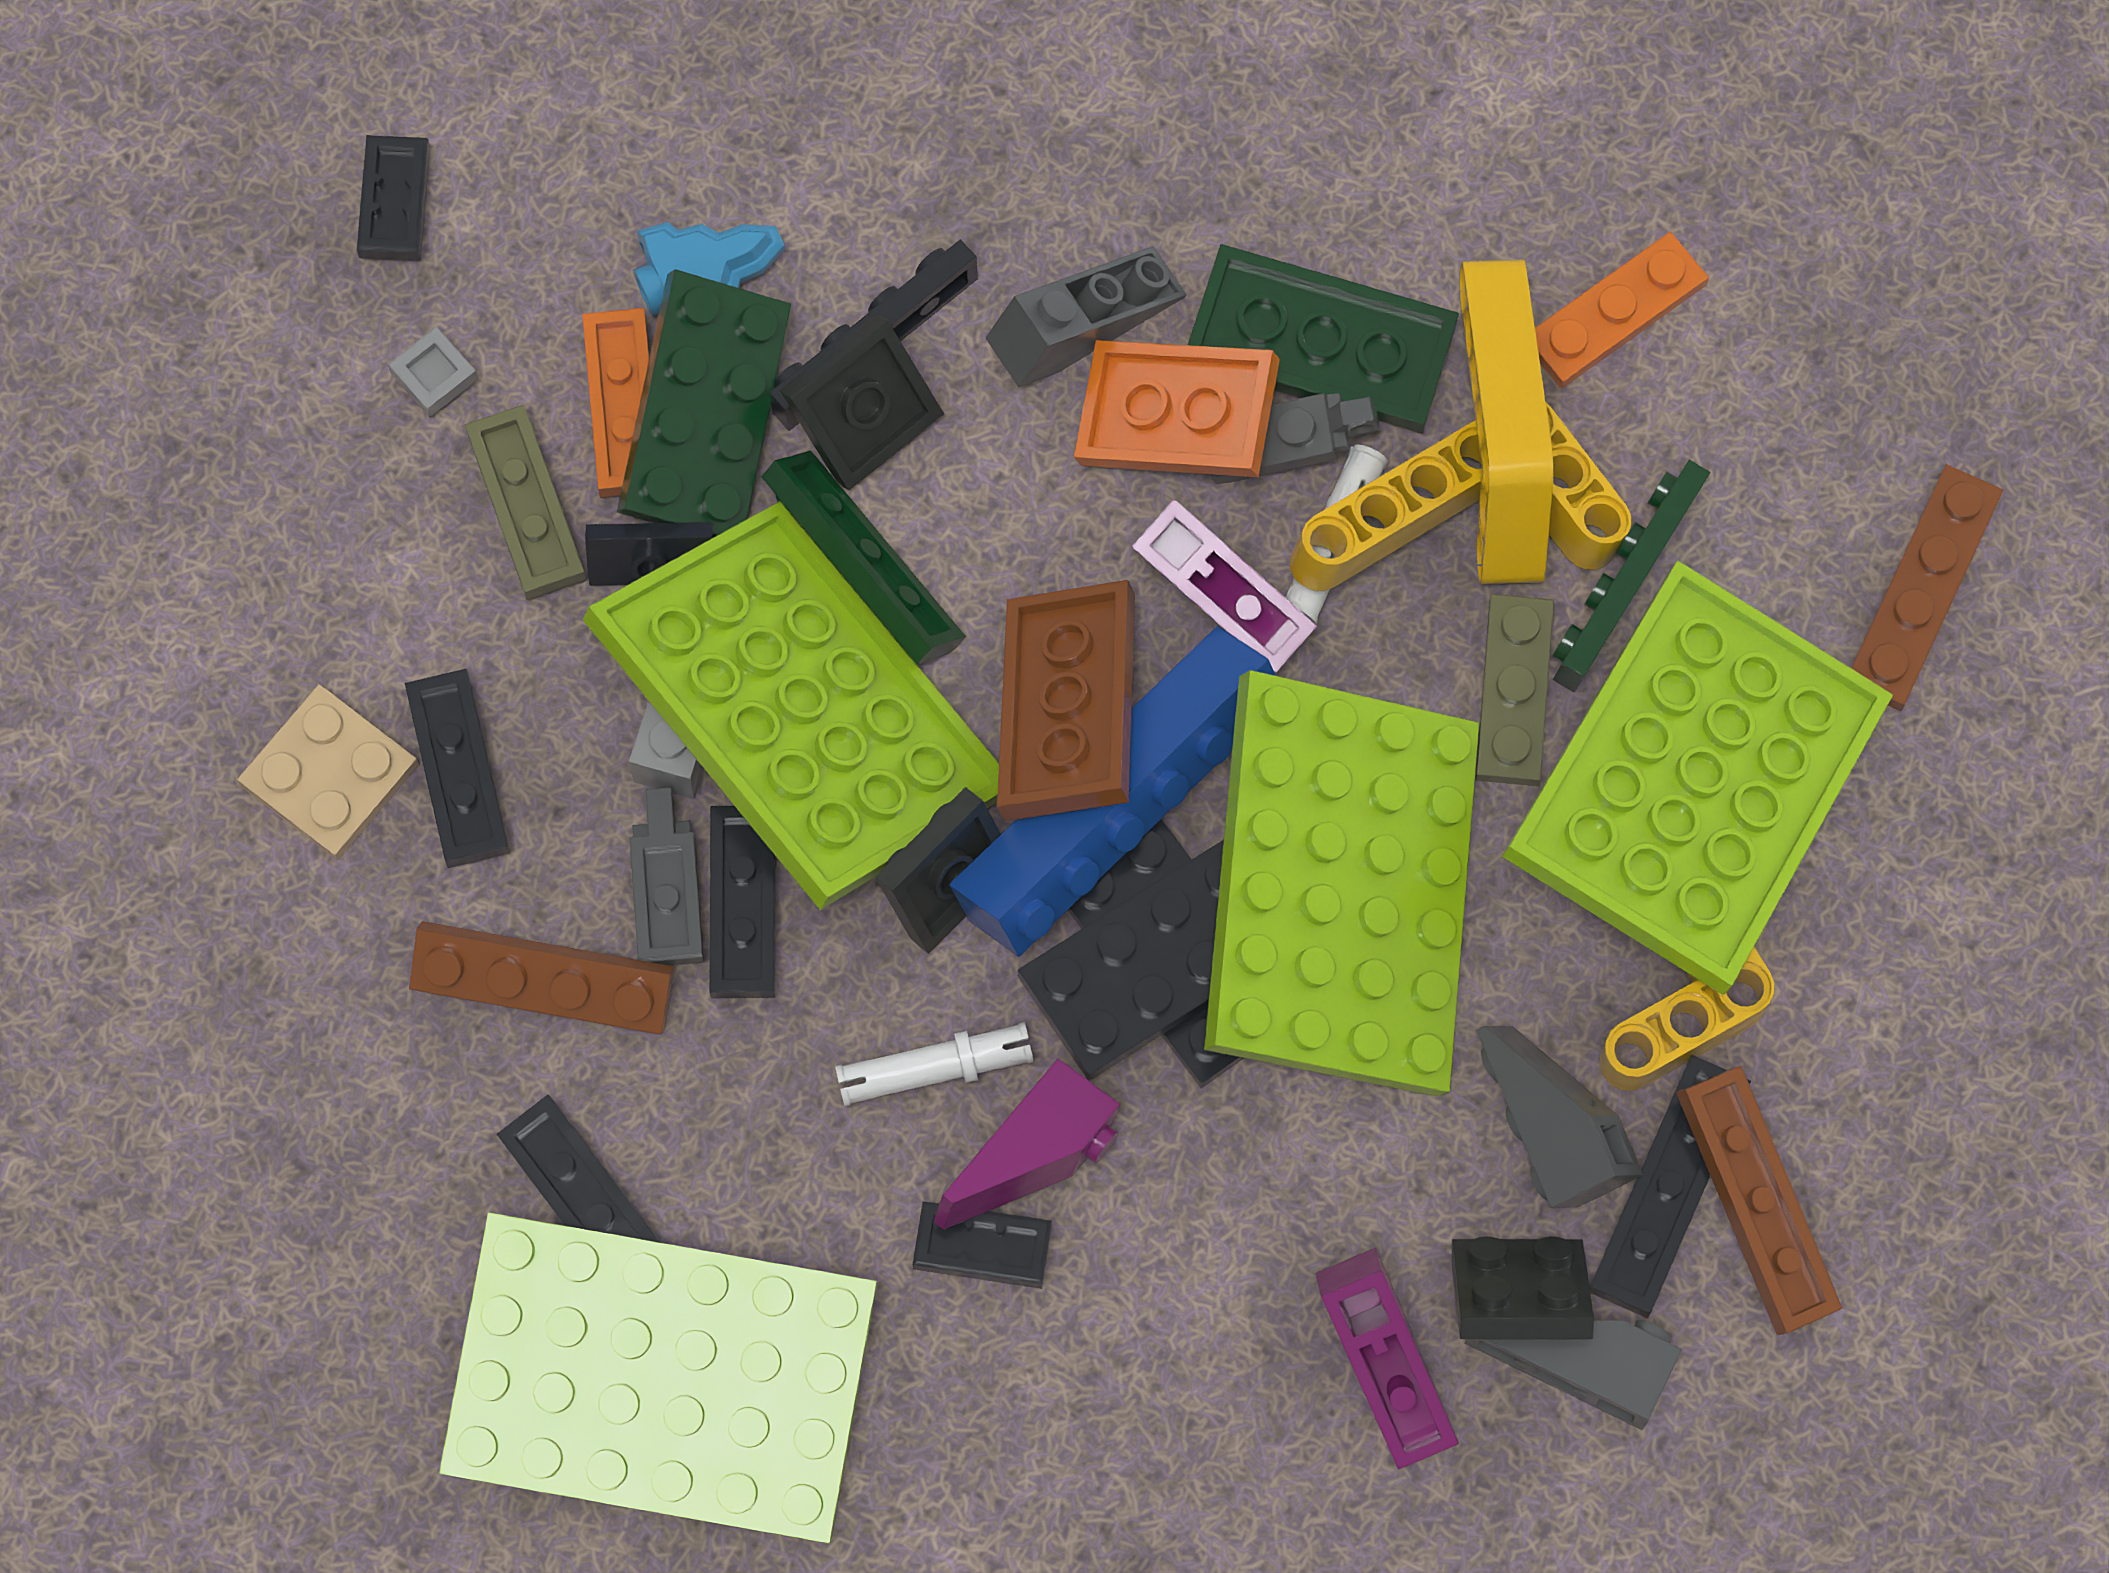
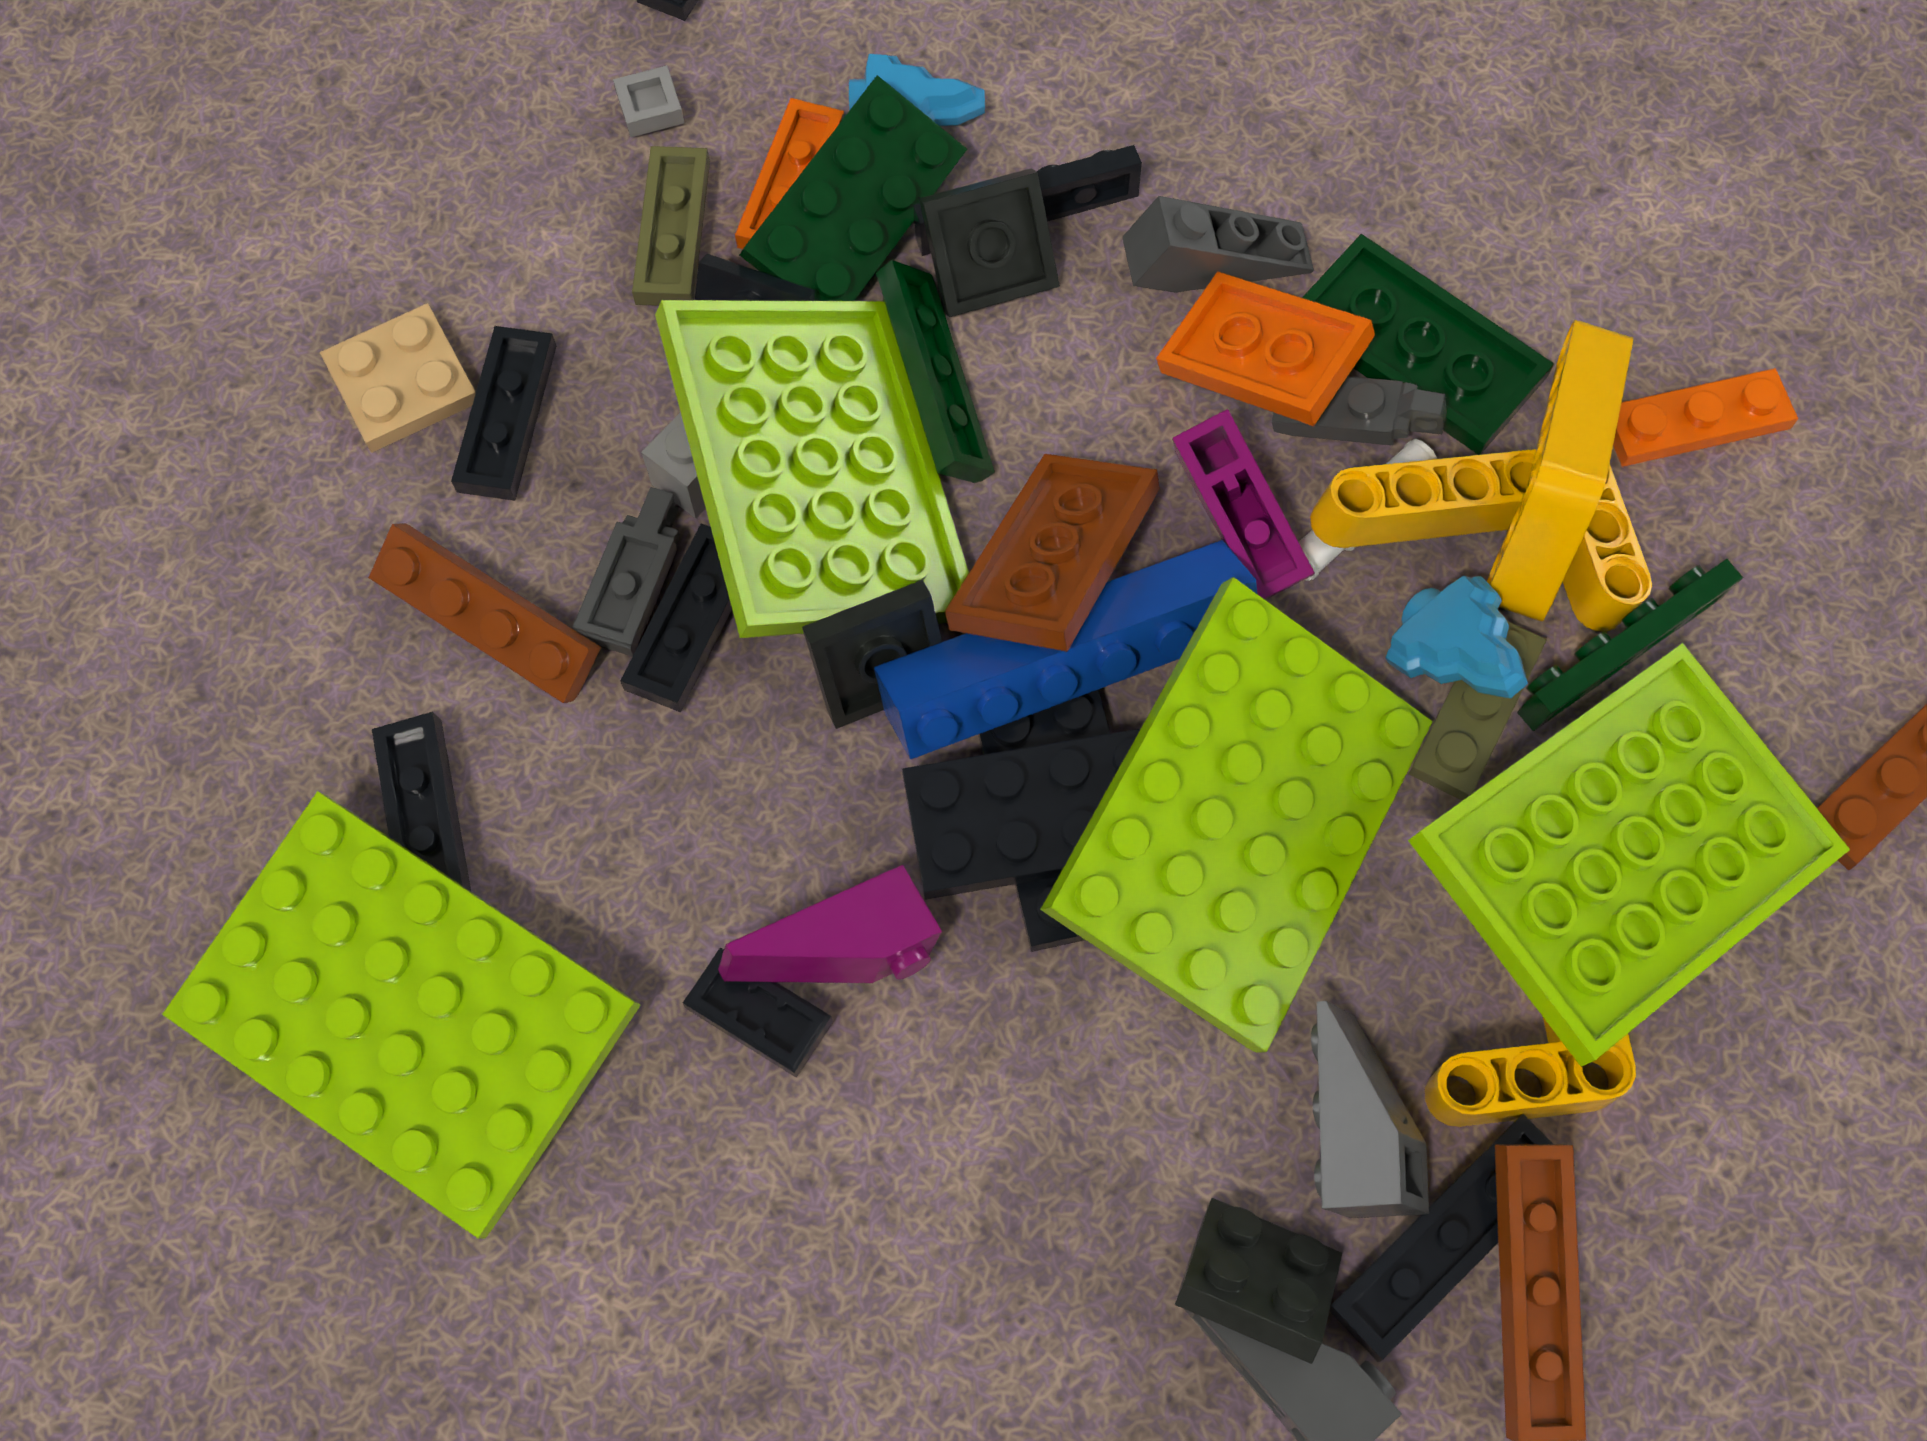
camera: 25 degrees right, 5 degrees down
(935, 1064) = (793, 827): white pin -> none
(1386, 1358) = (1095, 1289): magenta slope -> none
(1473, 636) = (1458, 638): none -> dark azure rock

